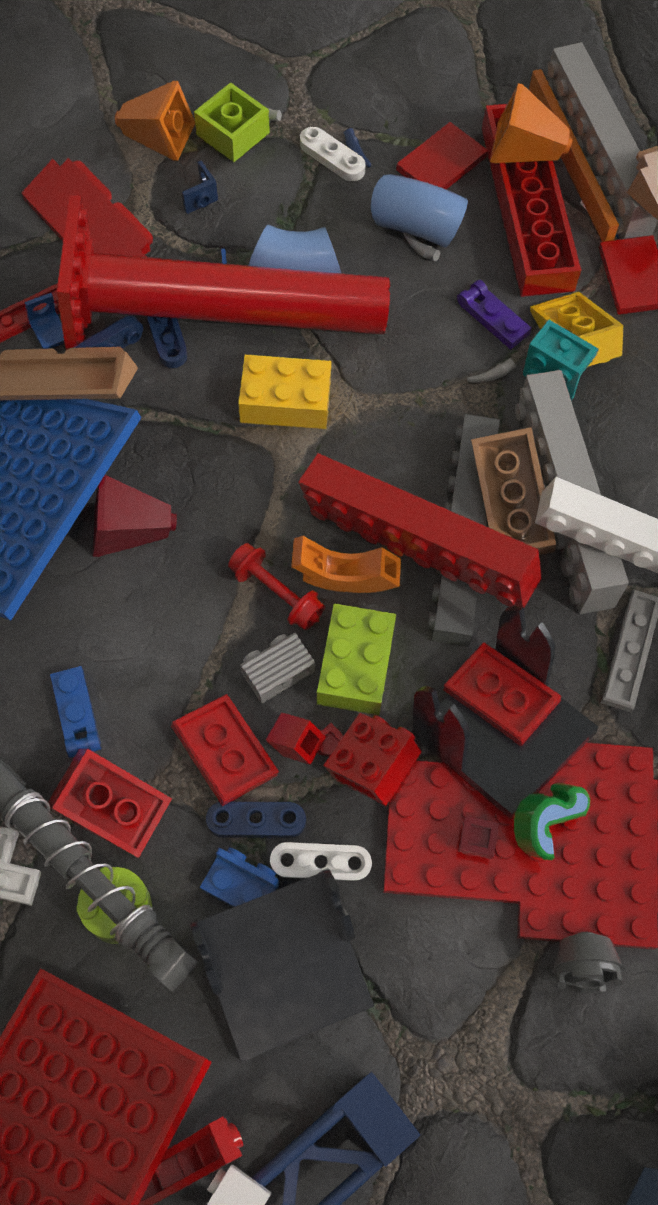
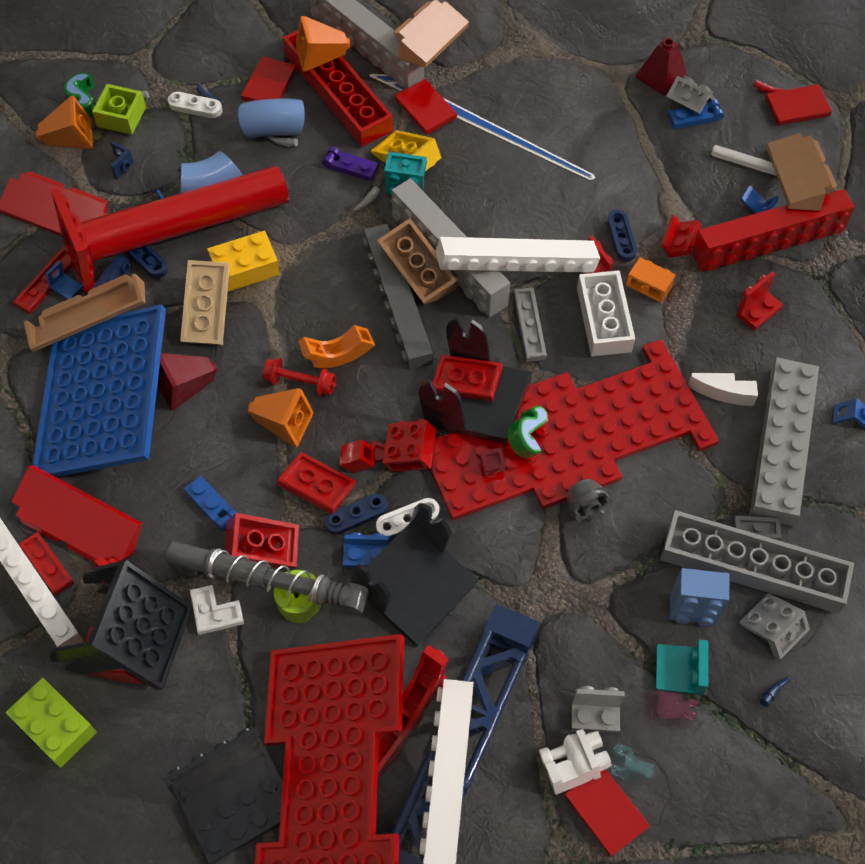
camera: 25 degrees left, 5 degrees down
(194, 76) = (78, 87): none -> green animal
(204, 428) = (205, 302): none -> tan plate
(228, 629) = (283, 414): none -> orange slope
(277, 666) = (324, 422): light grey brick -> none
(356, 659) = (370, 397): lime brick -> none
(422, 531) = (371, 304): red brick -> none
(578, 166) = (360, 55): orange tile -> none

